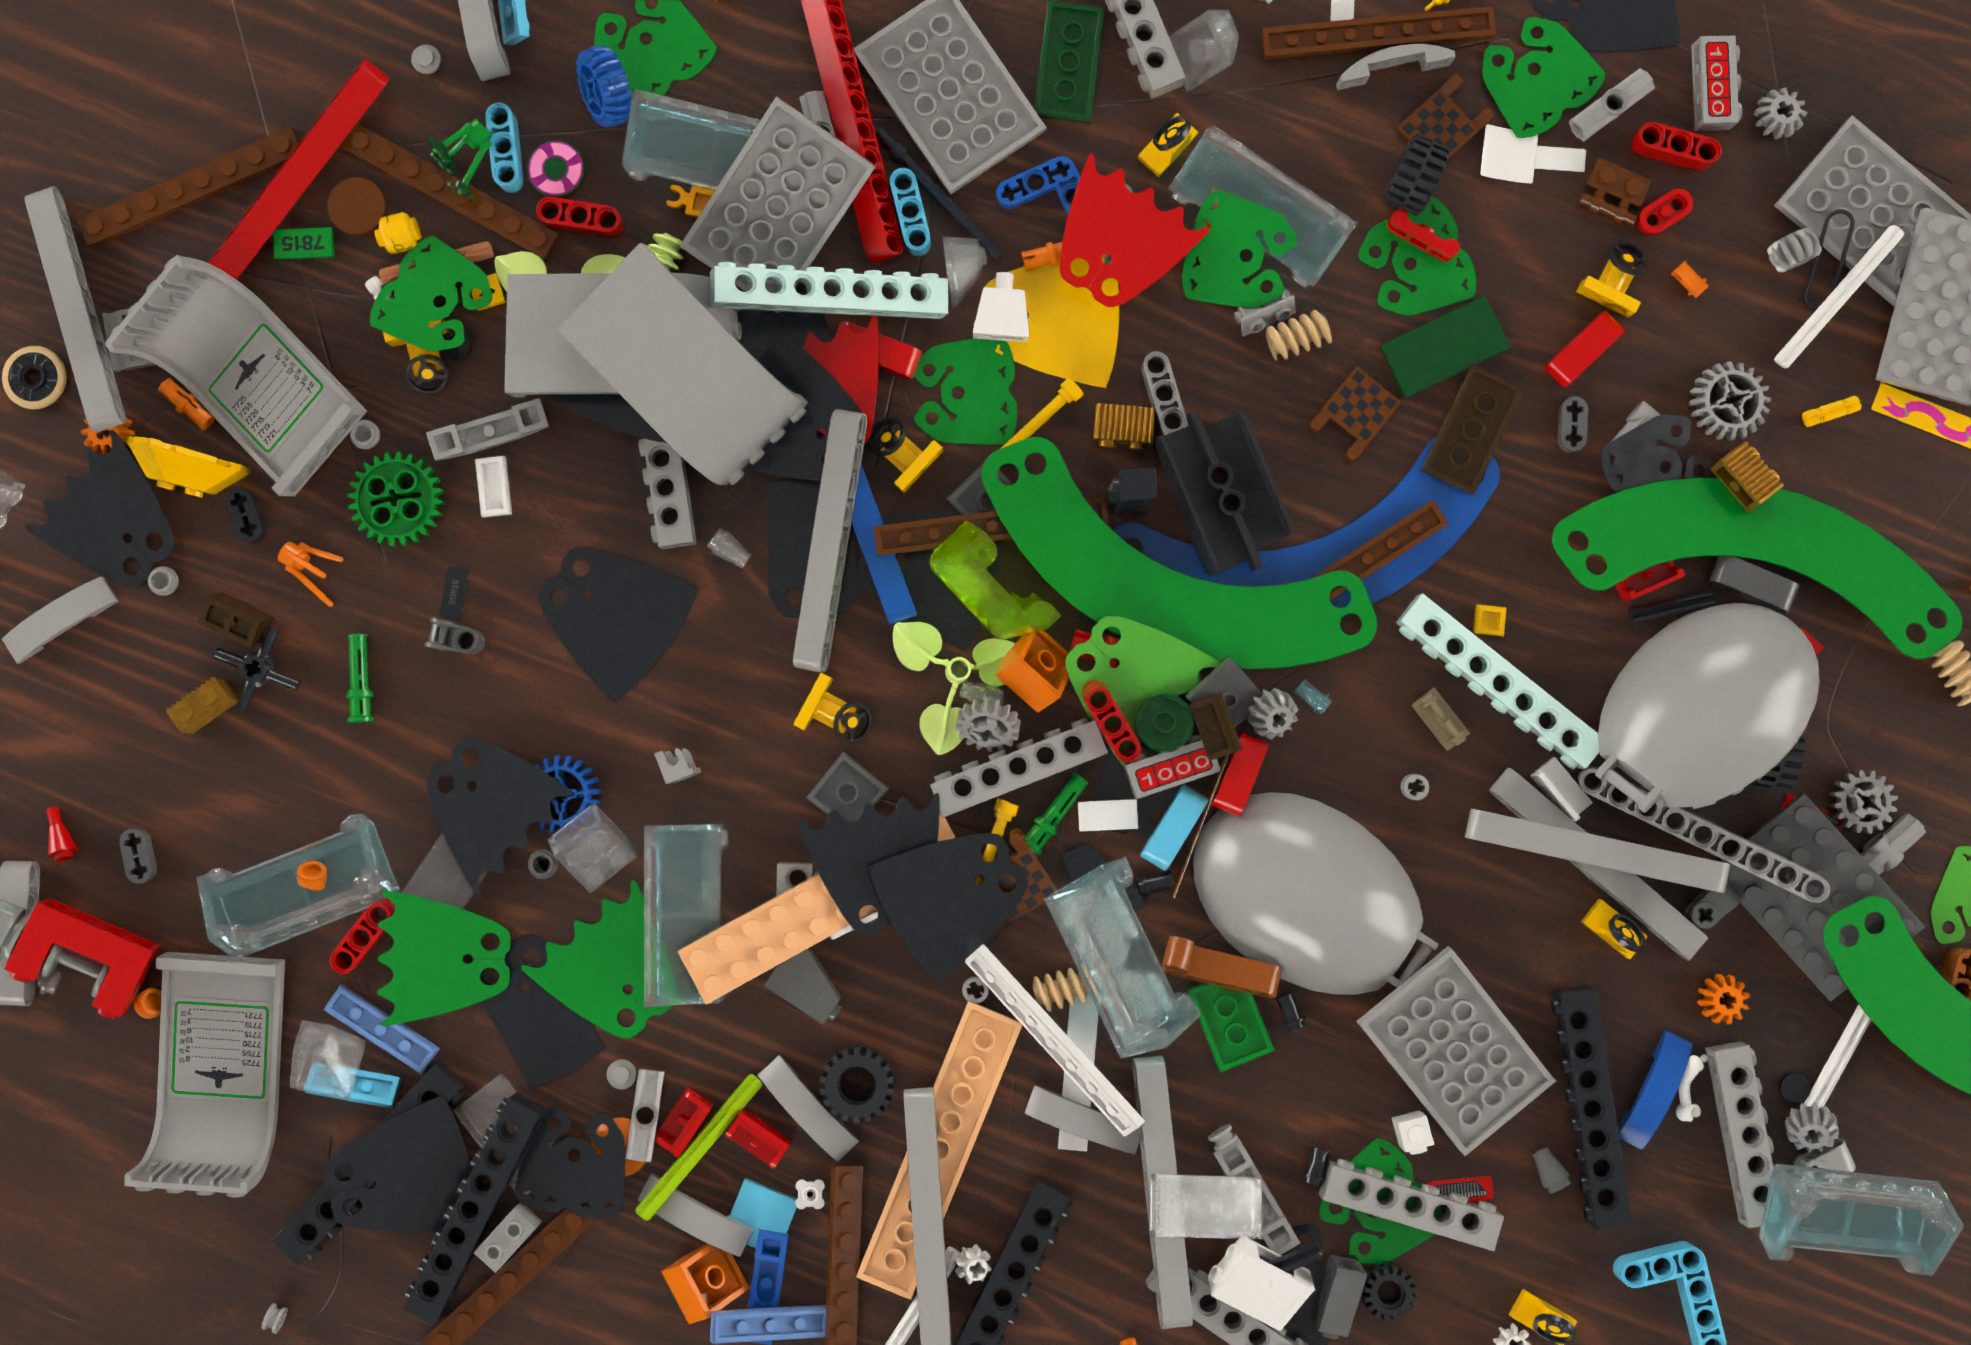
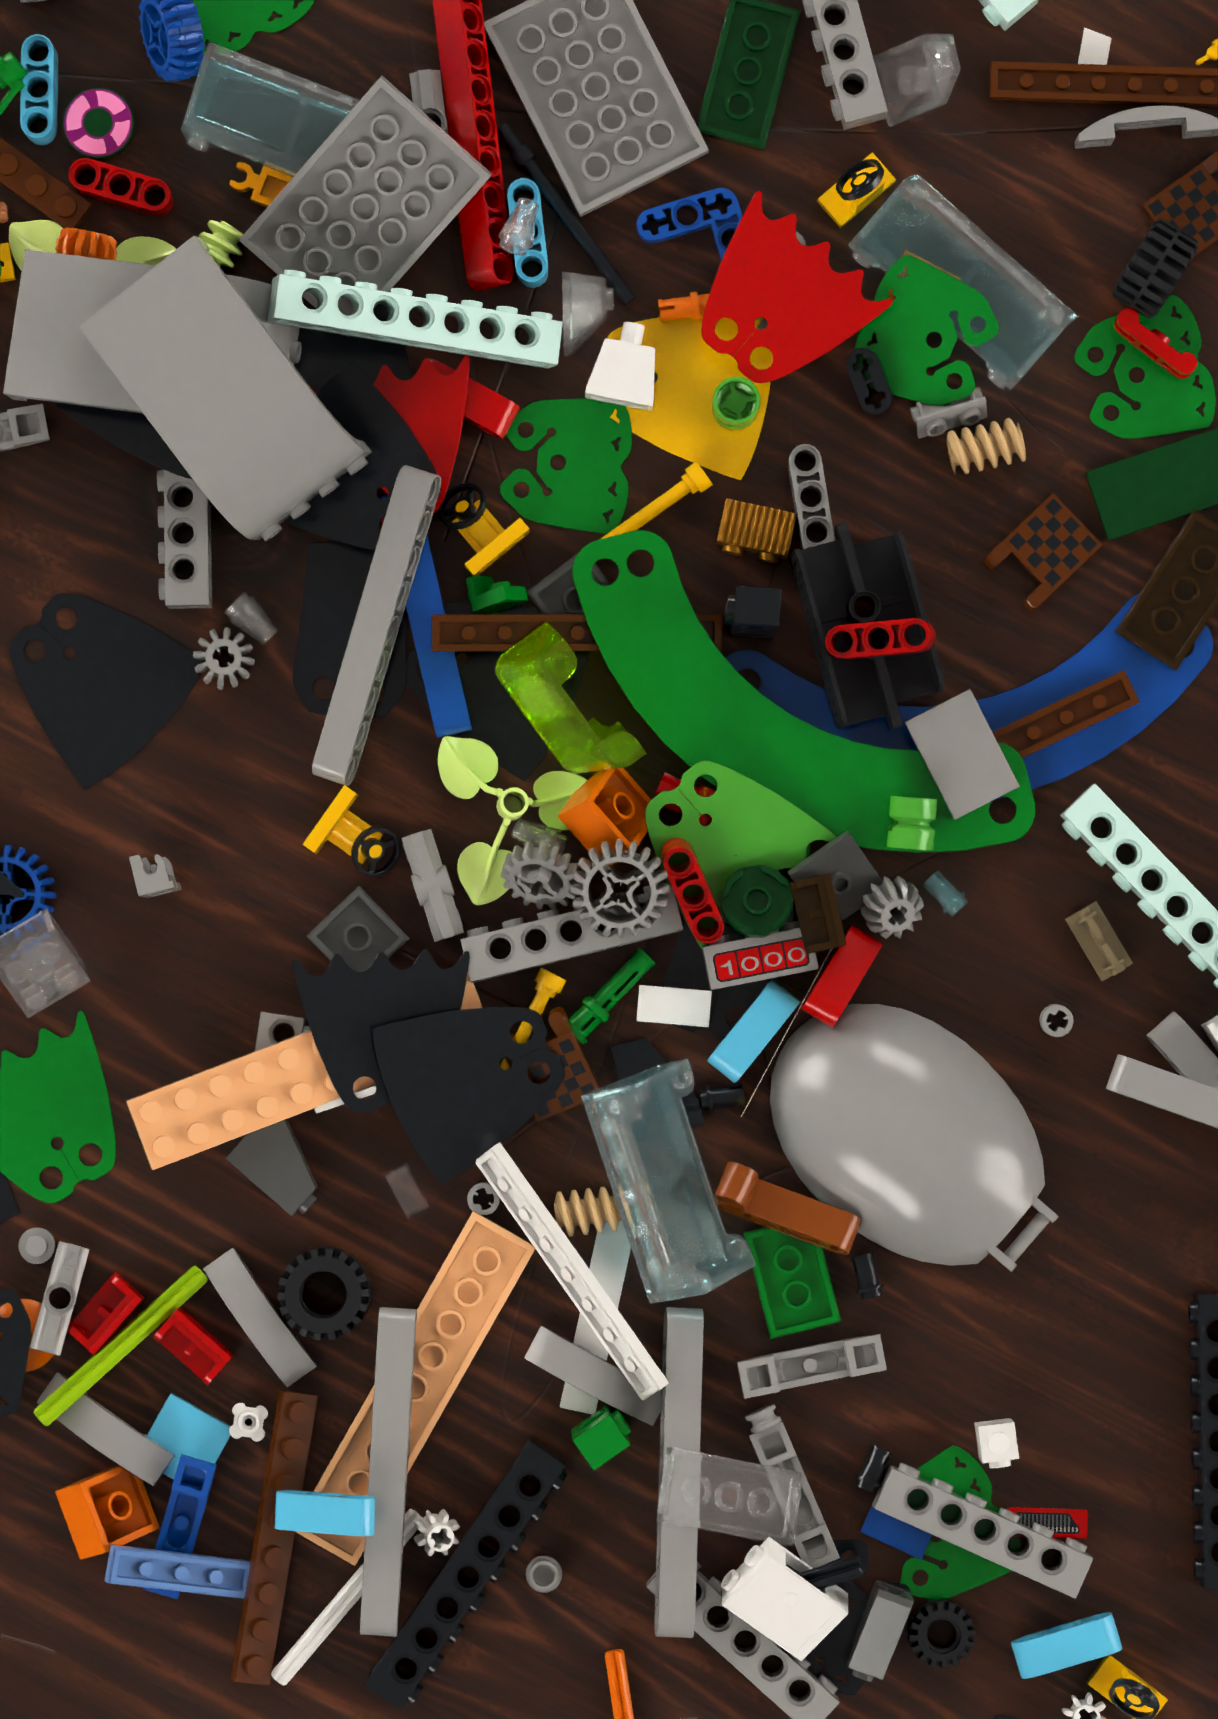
camera: 10 degrees right, 0 degrees up
(557, 264) = (86, 244): none -> orange gear
(679, 905) = (135, 1046): clear light blue windscreen -> none
(703, 589) = (213, 665): none -> light grey gear
(881, 1263) = (325, 1513): none -> medium azure beam
(902, 743) = (432, 885): none -> light grey piece
(903, 209) = (519, 229): none -> clear cone
(912, 991) = (406, 1190): none -> clear piece
(920, 506) = (493, 597): none -> green bracket
(1044, 736) = (631, 879): none -> light grey gear
(1063, 1285) = (544, 1573): none -> light grey plate
(1094, 326) = (735, 403): none -> bright green wheel
(1095, 1170) = (601, 1436): none -> green brick
(1205, 292) = (861, 385): none -> black beam
(1222, 498) = (862, 638): none -> red beam
(1255, 1089) = (811, 1365): none -> light grey slope
(1280, 644) = (911, 823): none -> bright green wheel
(1313, 583) = (961, 754): none -> light grey tile
(1340, 1215) = (896, 1533): none -> blue sticker
(1456, 1051) = (1062, 1349): light grey plate -> none
(1489, 620) = (1175, 828): yellow tile -> none
(1490, 1288) = (1066, 1645): none -> medium azure beam
(1551, 1172) = (1160, 1512): dark grey cone -> none

